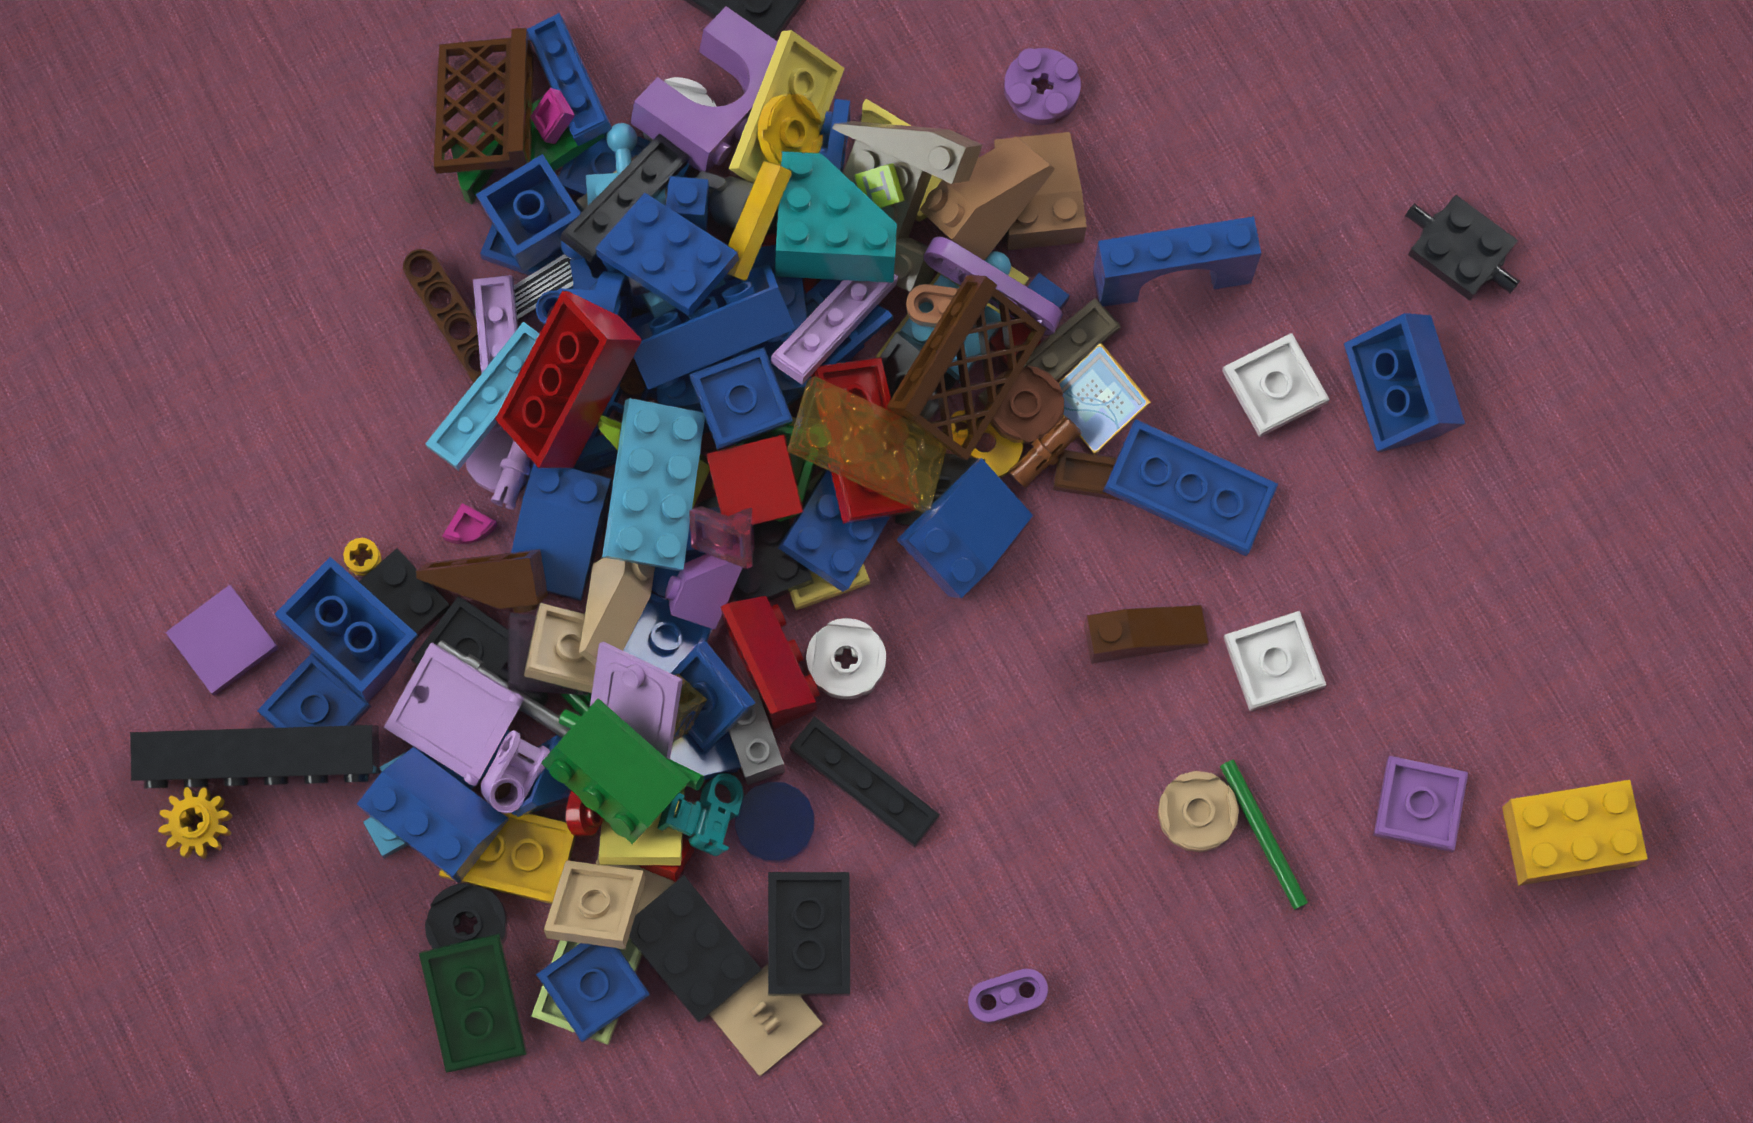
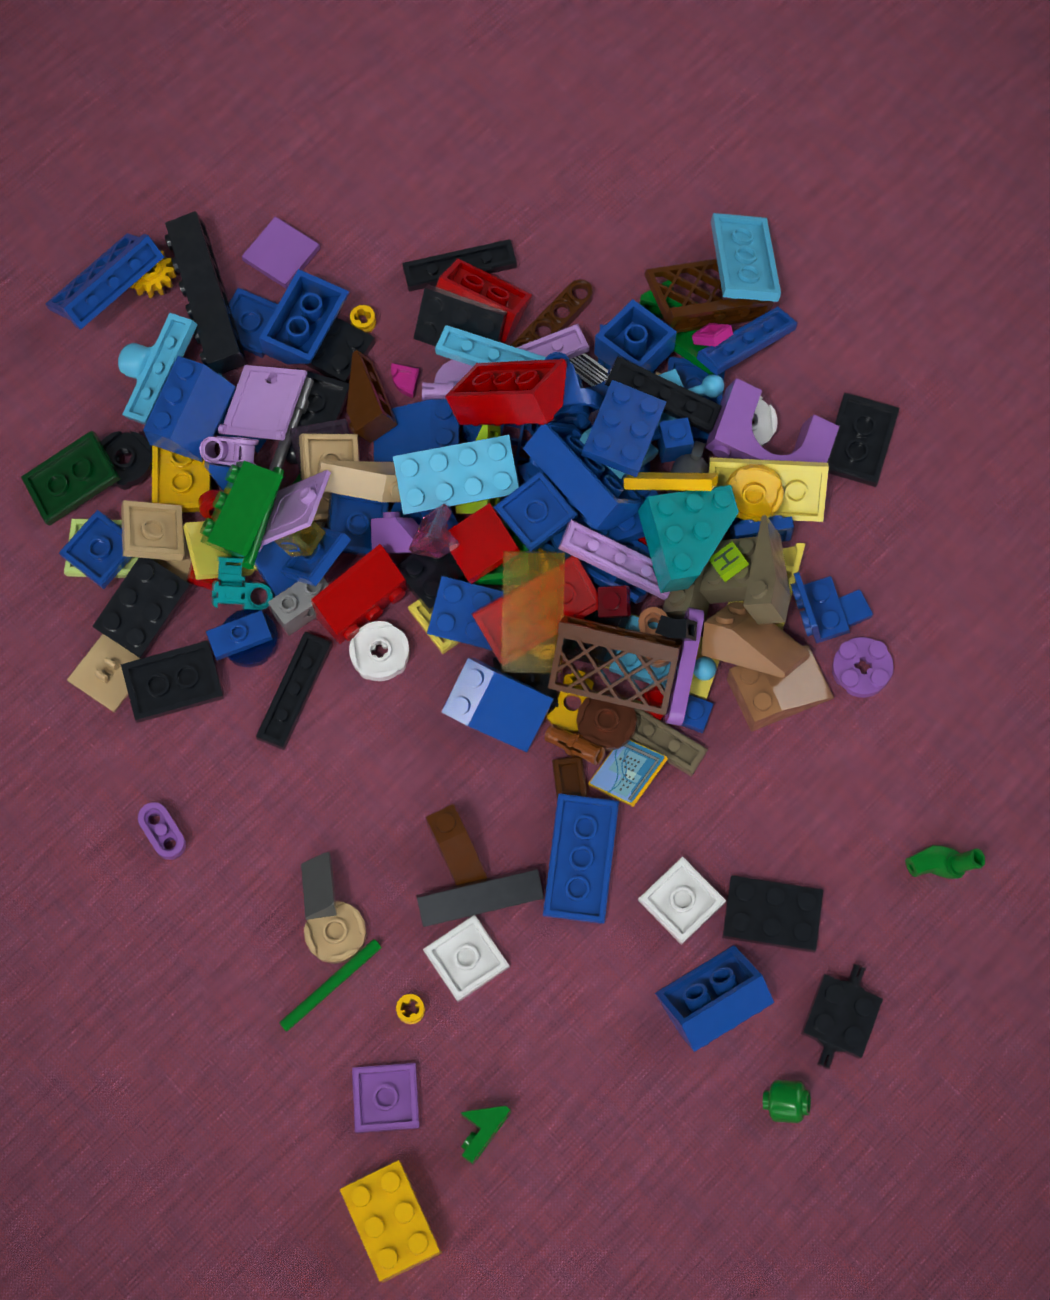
camera: 75 degrees right, 5 degrees down
(205, 876) = (105, 279): none -> blue fence
(324, 410) = (488, 257): none -> black tile
(349, 847) = (153, 365): none -> medium azure plate
(393, 394) = (485, 288): none -> red slope
(400, 439) = (446, 308): none -> black plate
(452, 43) = (745, 257): none -> medium azure plate
(773, 830) = (239, 635): none -> blue plate
(886, 342) = (614, 602): none -> dark red plate
(954, 273) = (677, 628): none -> black piece
(957, 107) = (822, 608): none -> blue bracket
(963, 73) = (855, 608): none -> blue tile
(1139, 813) = (318, 887): none -> dark grey slope
(1206, 621) = (479, 896): none -> black tile
(1223, 247) = (734, 761): blue arch -> none
(1314, 71) = (944, 862): none -> green arm
(1318, 287) = (772, 914): none -> black plate
(1333, 744) = (414, 1018): none -> yellow bush
(1487, 685) = (489, 1123): none -> green slope
(1548, 338) = (787, 1101): none -> green head

